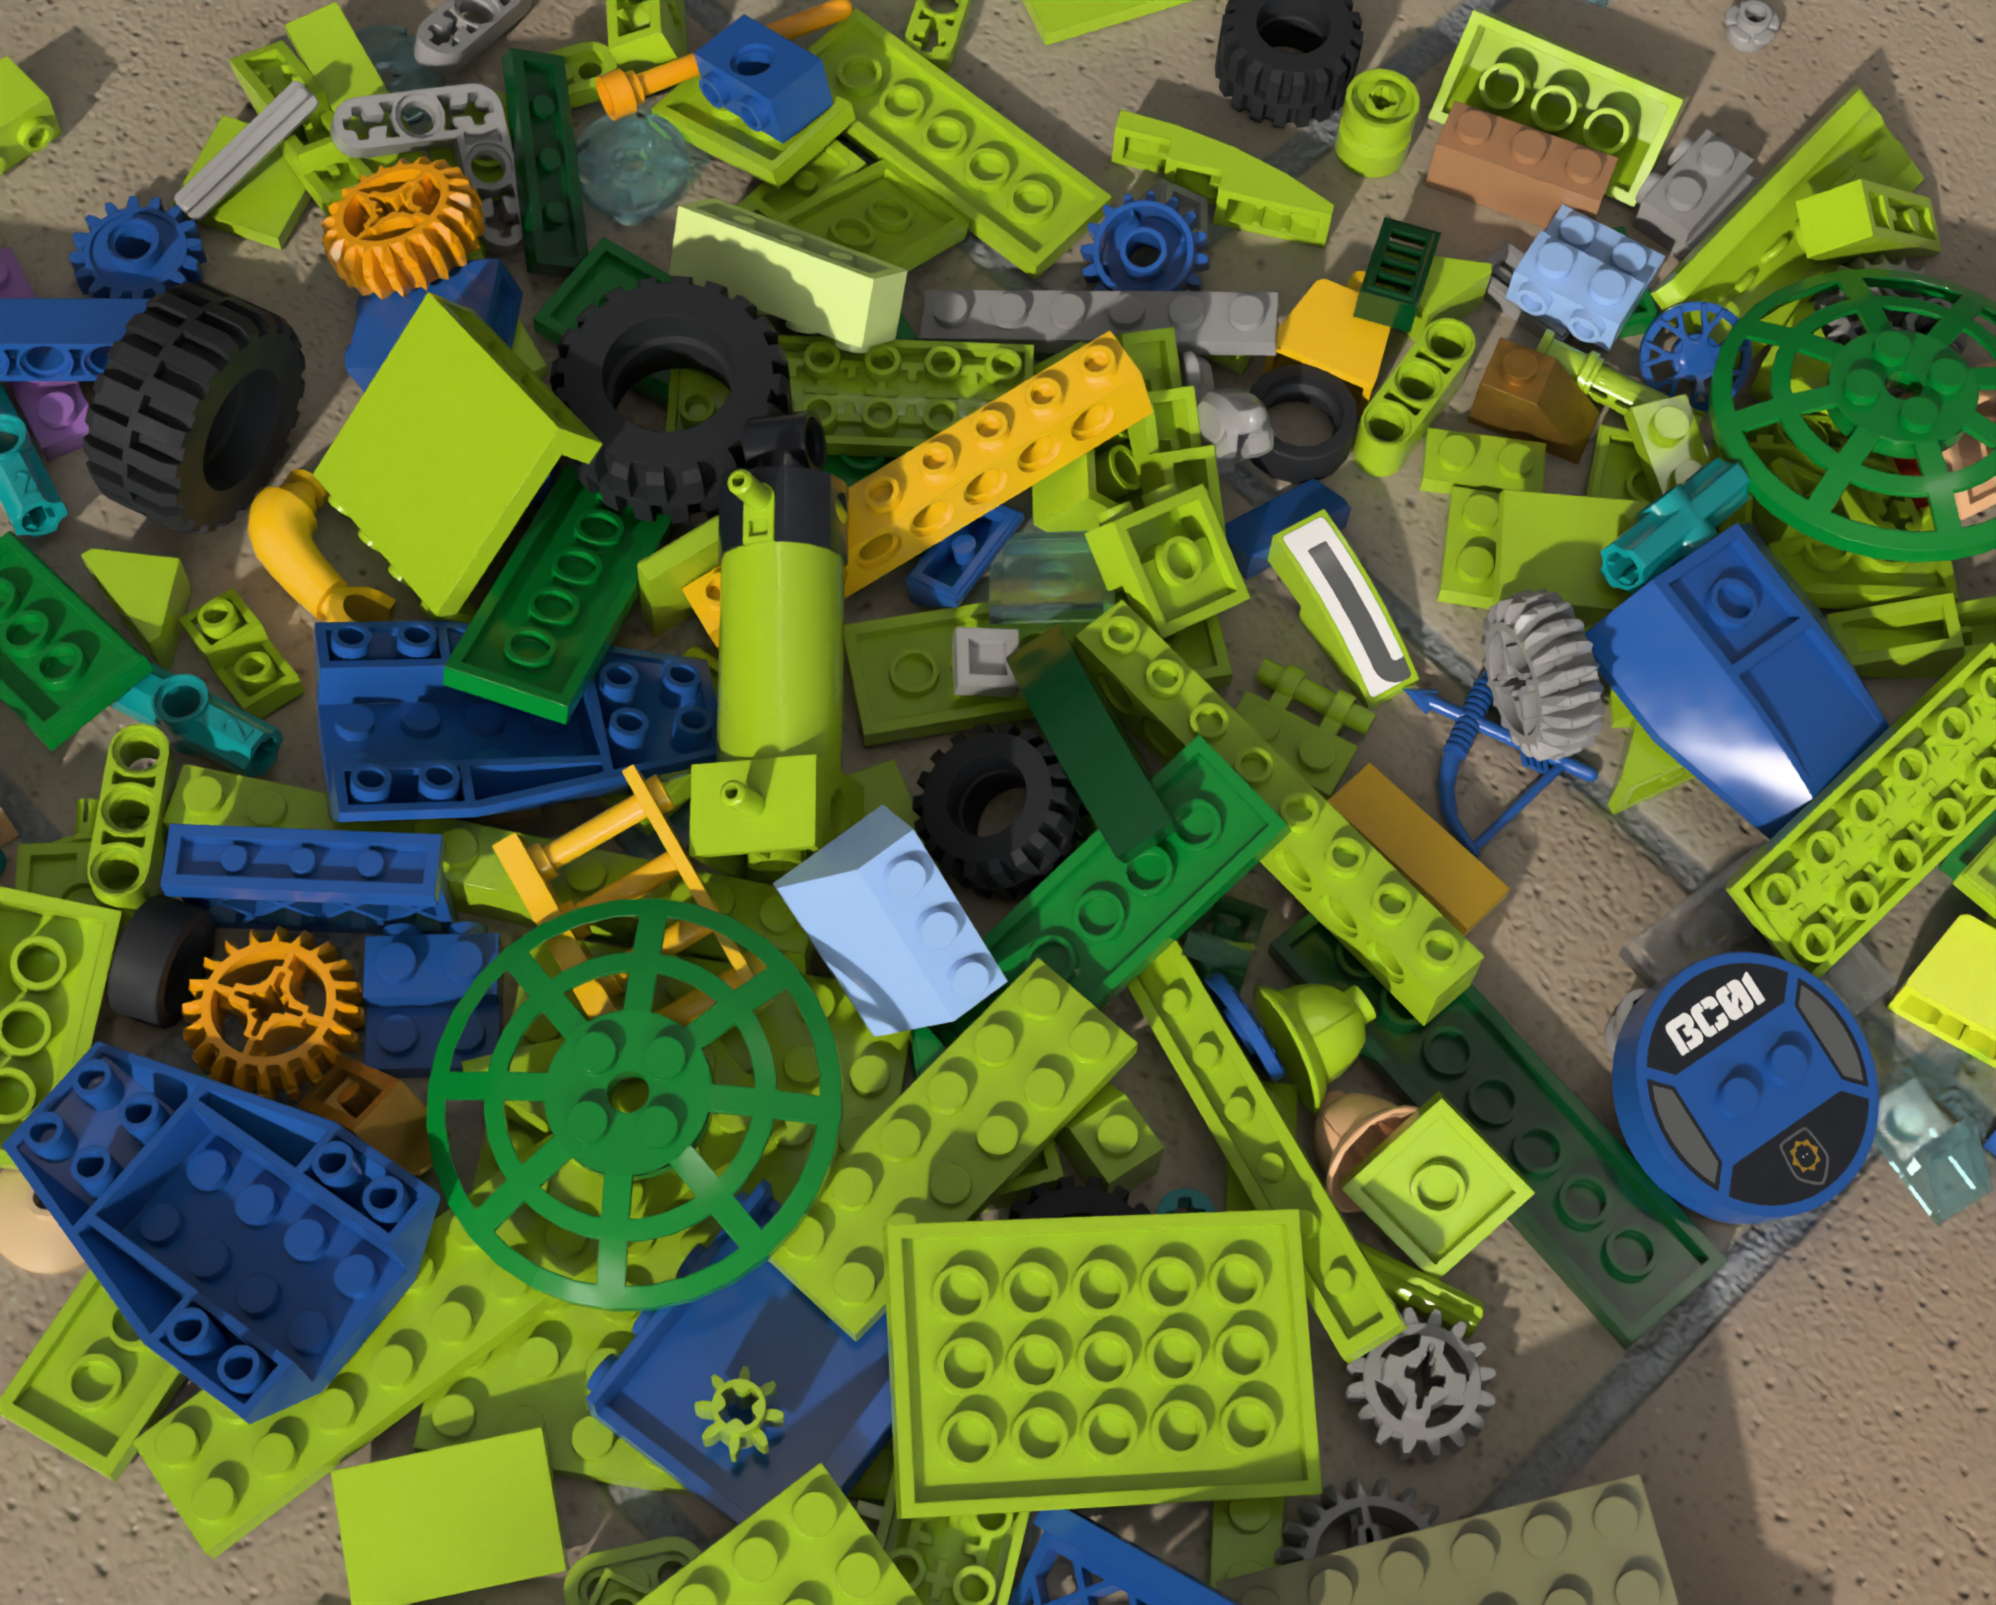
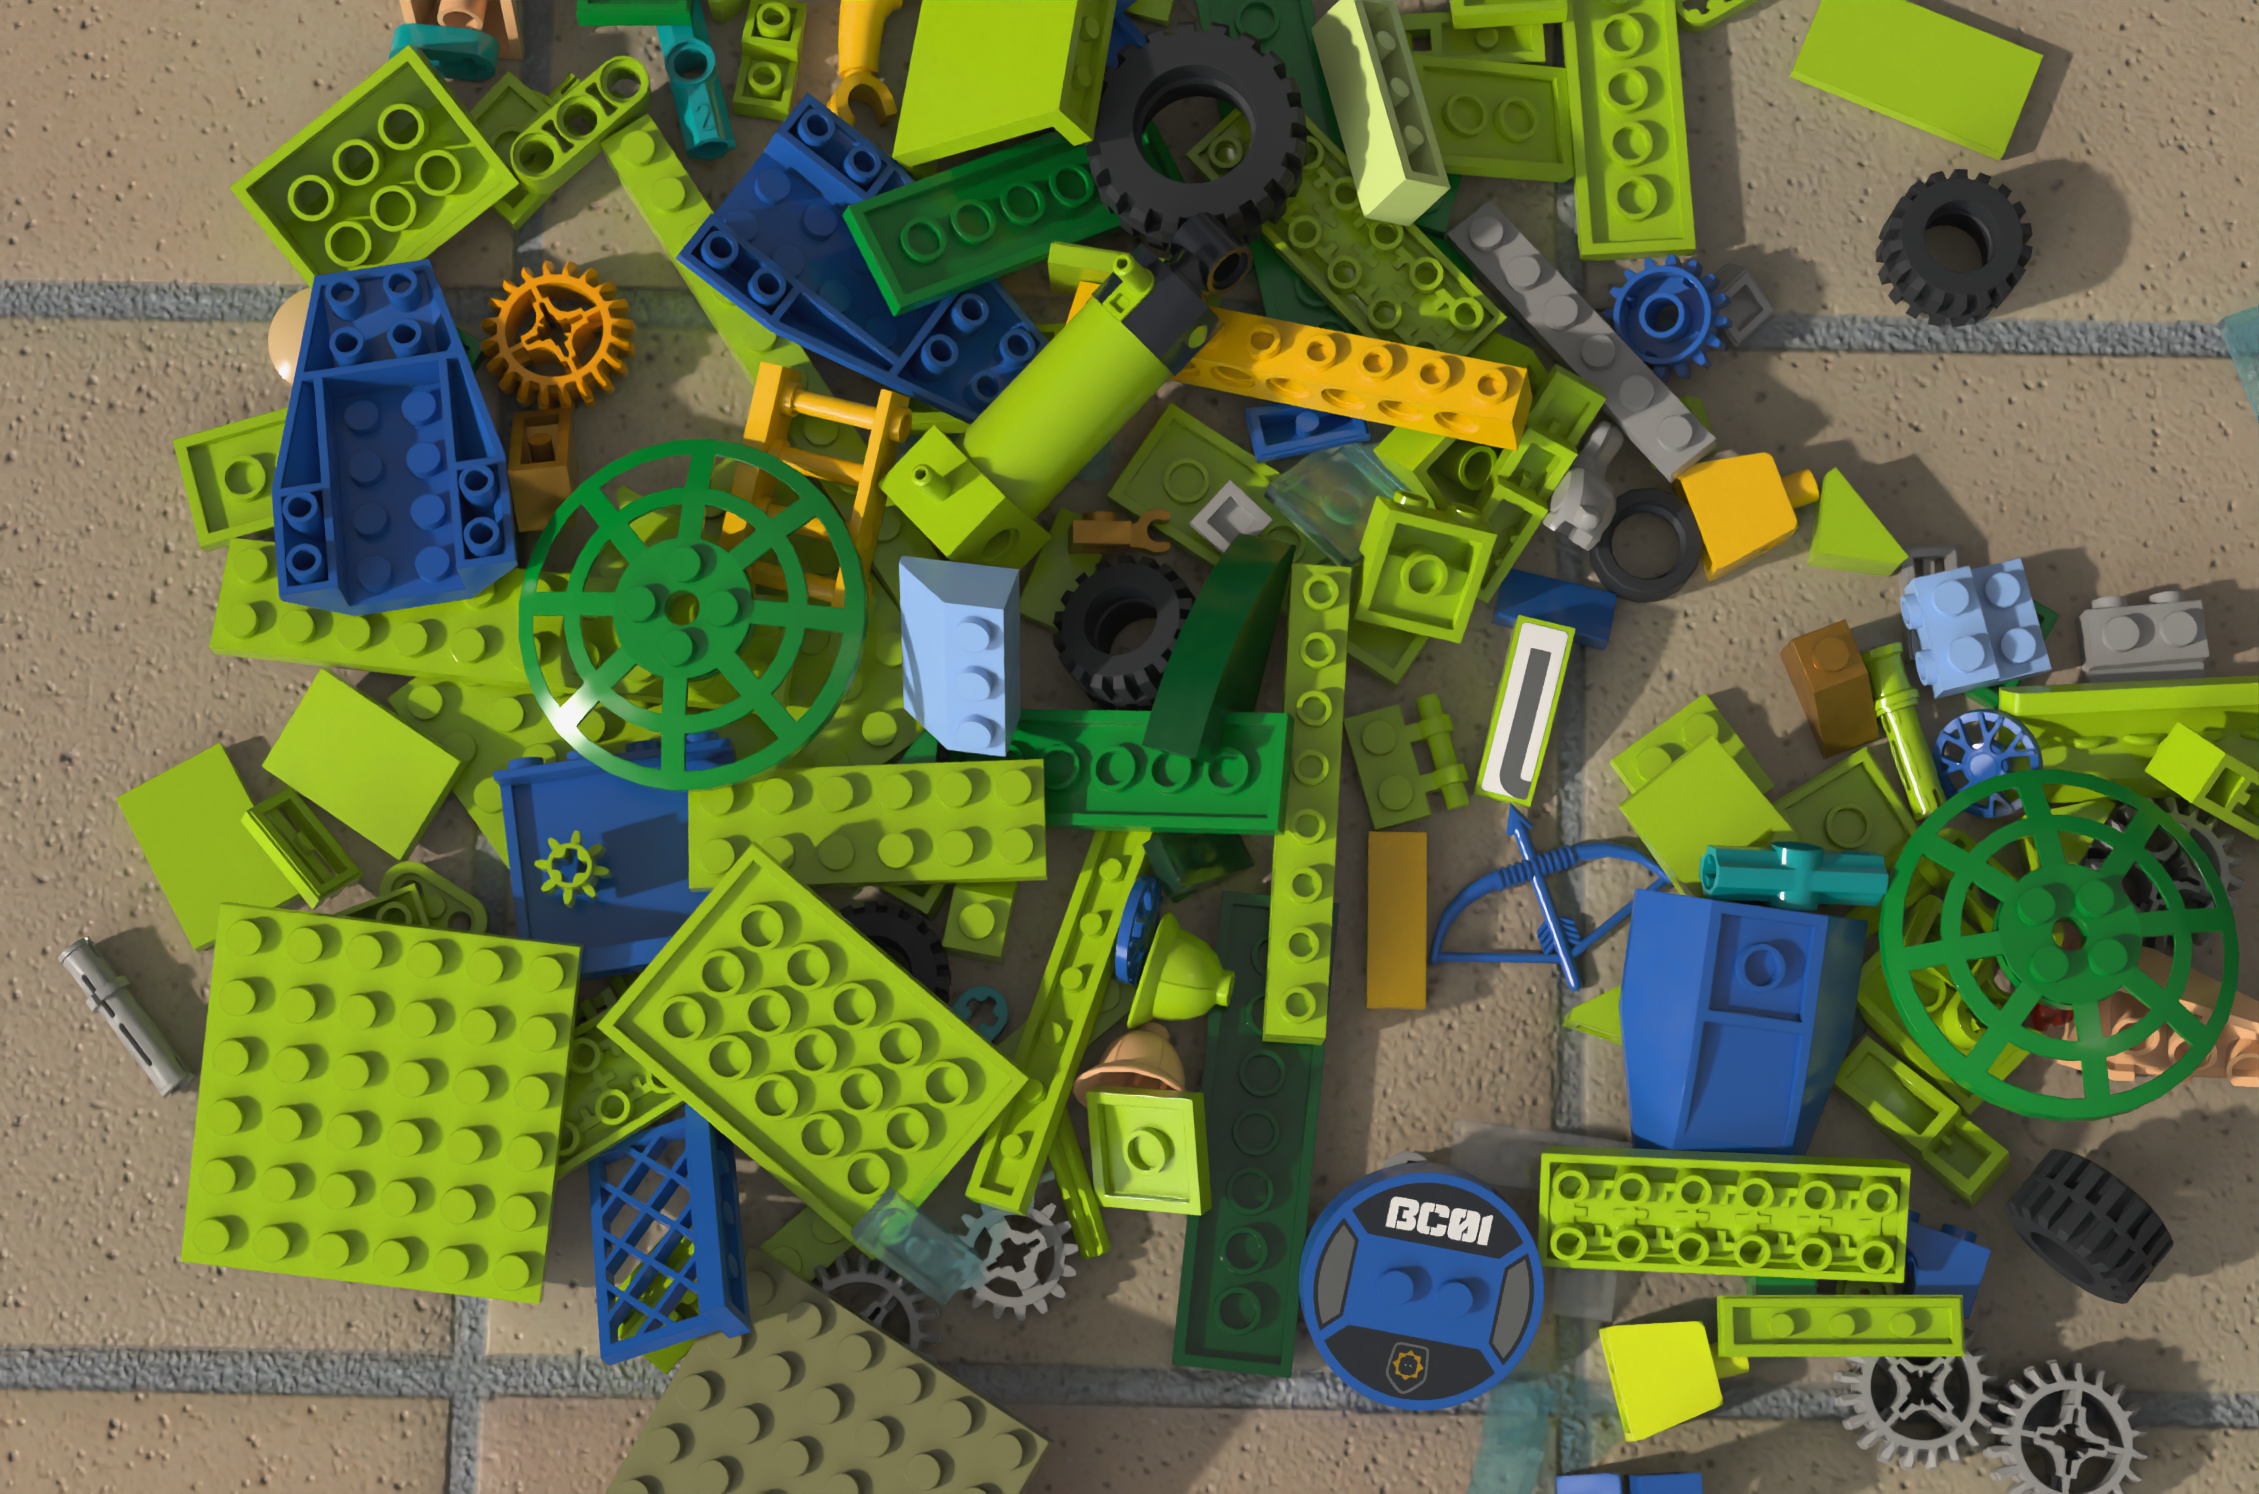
camera: 50 degrees right, 15 degrees up
(157, 958) = (517, 236): black tyre -> none
(310, 878) = (644, 269): blue fence -> none
(415, 986) = (660, 403): blue plate -> none
(898, 759) = (1103, 534): none -> pearl gold plate
(1243, 188) = (1799, 325): lime slope -> none
(1349, 1440) = (916, 1246): none -> clear light blue plate
(1376, 123) = (1954, 367): lime wheel -> none
(1387, 305) = (1784, 521): dark green slope -> none
(1420, 375) = (1769, 584): lime beam -> none
(1480, 462) = (1748, 698): lime plate -> none
(1516, 167) = (2023, 500): medium nougat brick -> none
(1542, 674) = (1585, 889): light grey gear -> none
(1562, 93) = (2117, 474): lime slope -> none
(1667, 442) = (1885, 812): lime plate -> none

